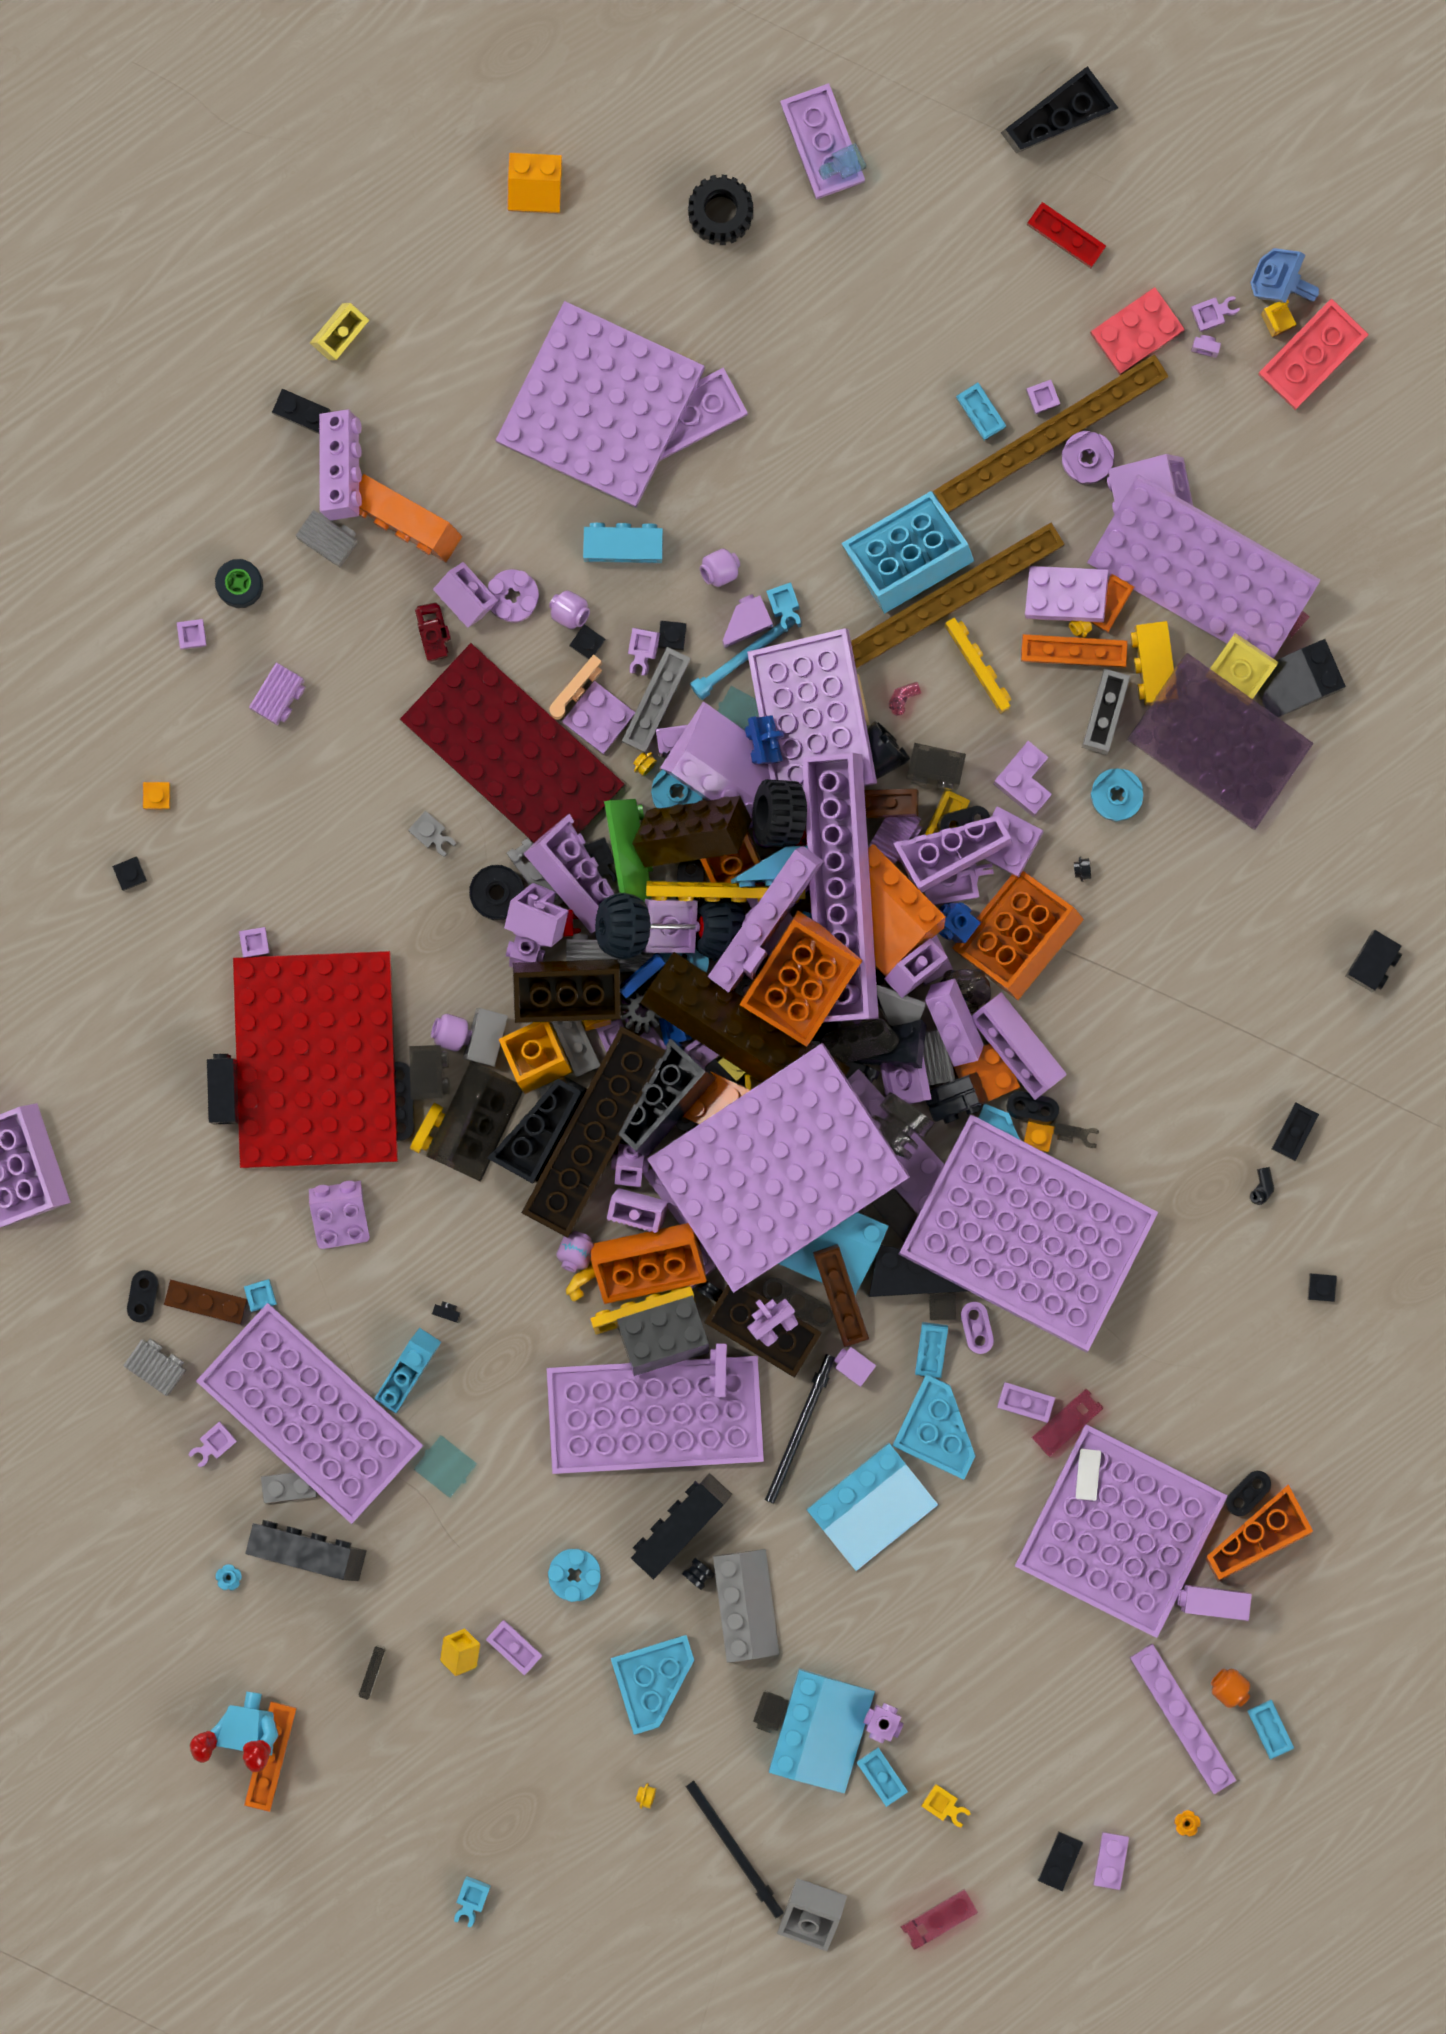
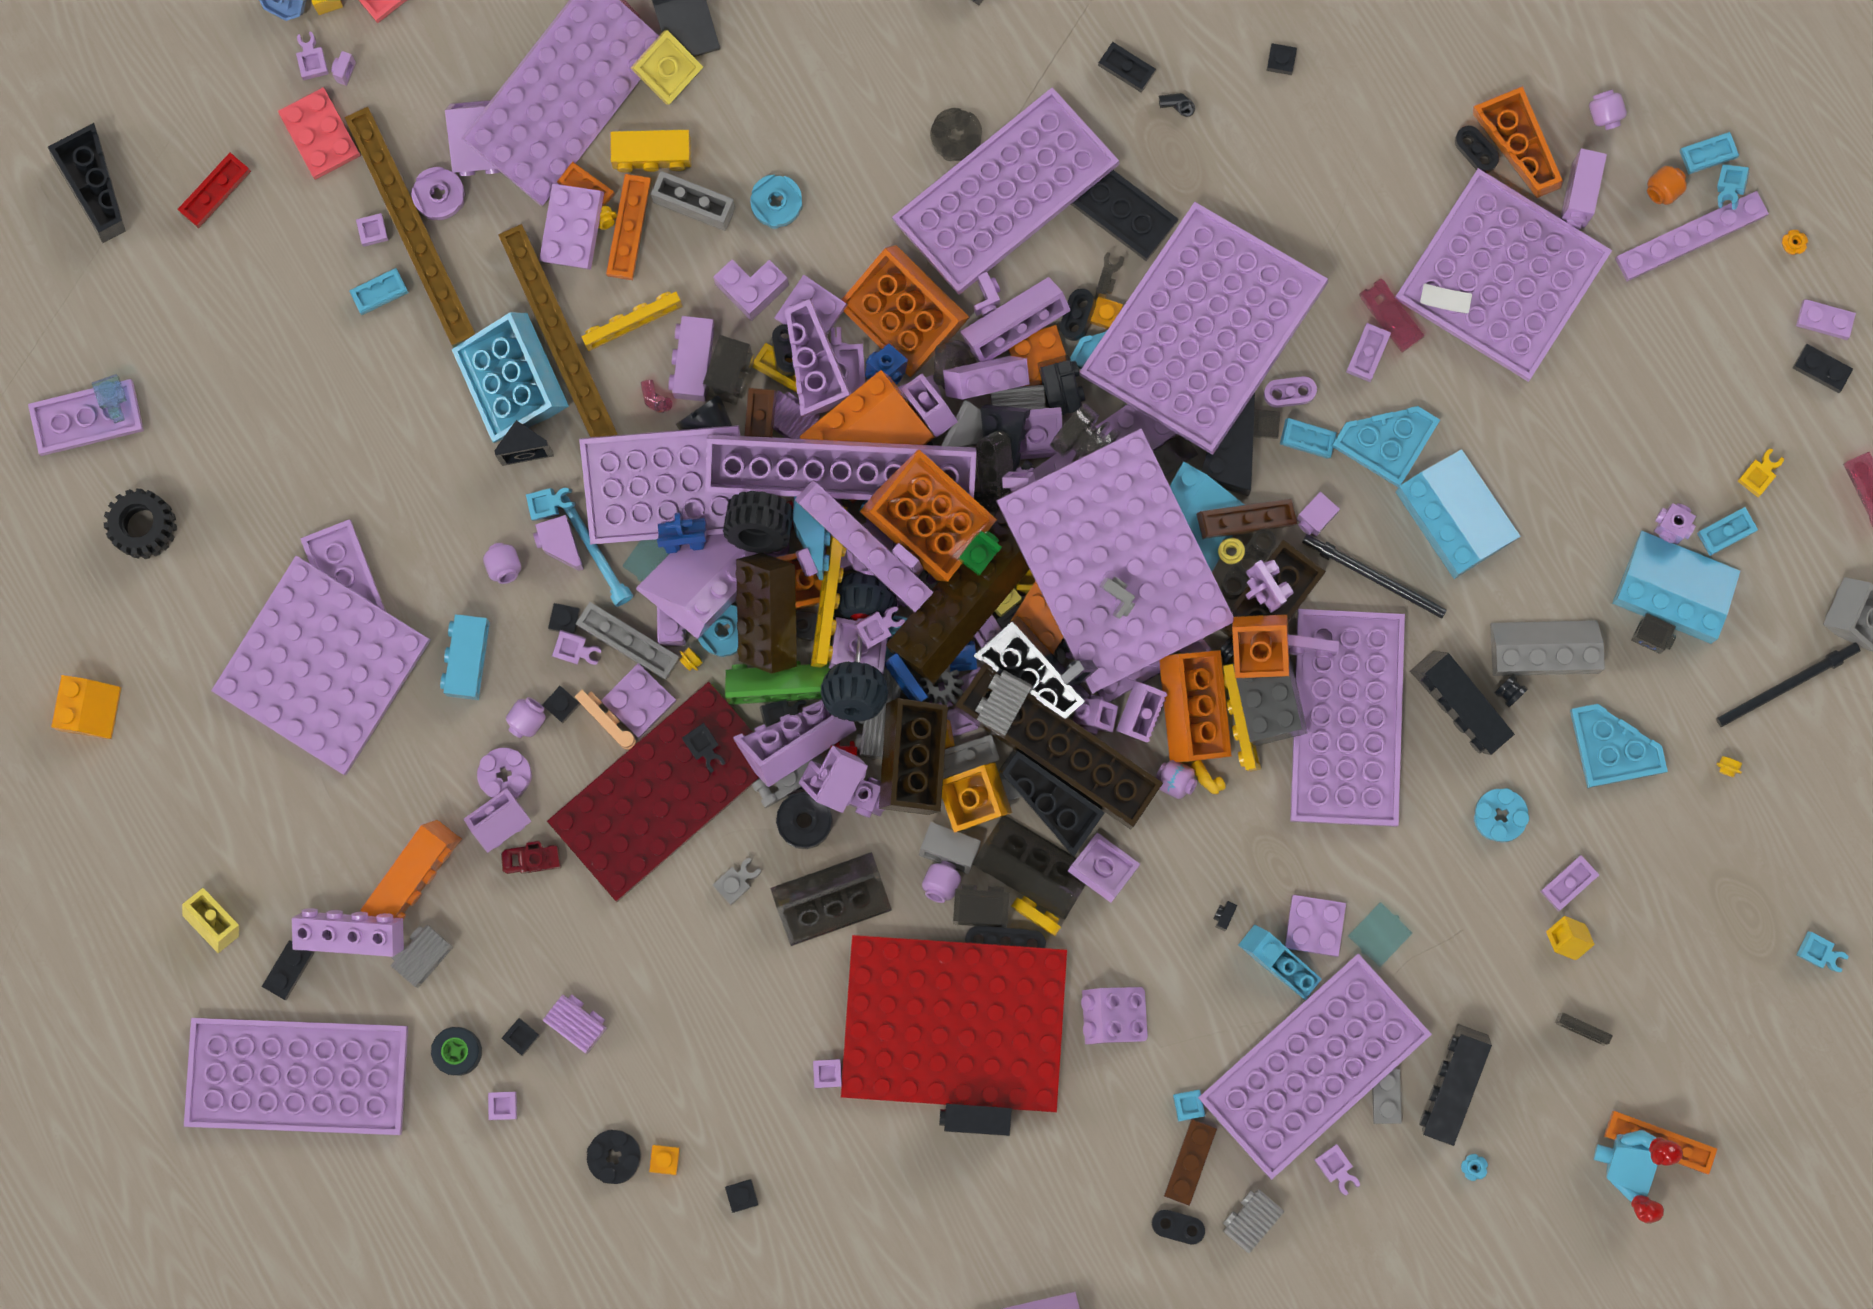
camera: 80 degrees left, 5 degrees down
(139, 743) = (628, 1161): none -> black plate
(199, 433) = (296, 1076): none -> lavender plate
(259, 643) = (520, 1036): none -> black plate
(423, 927) = (831, 899): none -> clear smoke slope
(447, 1401) = (1315, 925): none -> lavender plate
(480, 1189) = (1104, 867): none -> lavender plate
(559, 784) = (701, 743): none -> black plate
(626, 1072) = (1003, 702): none -> light grey brick
(663, 1141) = (1078, 672): none -> black plate
(689, 939) = (875, 628): none -> lavender plate
(710, 1319) = (1260, 646): none -> orange slope
(745, 864) = (806, 562): none -> lavender tile
(746, 1171) = (1117, 589): none -> light grey bracket
(770, 1032) = (980, 551): none -> green bracket
(812, 1277) = (1231, 543): none -> light yellow plate
(838, 571) = (522, 445): none -> black slope
(850, 1065) = (1018, 479): none -> lavender plate
(946, 729) = (691, 358): none -> lavender brick
(1048, 1017) = (989, 290): none -> lavender bracket
(1082, 869) = (846, 241): black plate -> none
(1146, 1140) = (1127, 214): none -> black plate
(1151, 1022) = (1005, 190): none -> lavender plate
(1202, 981) = (942, 128): none -> clear smoke plate
(1220, 741) = (735, 94): clear purple plate -> none
(1241, 1754) = (1732, 182): none -> medium azure plate
(1304, 1622) = (1607, 109): none -> lavender head

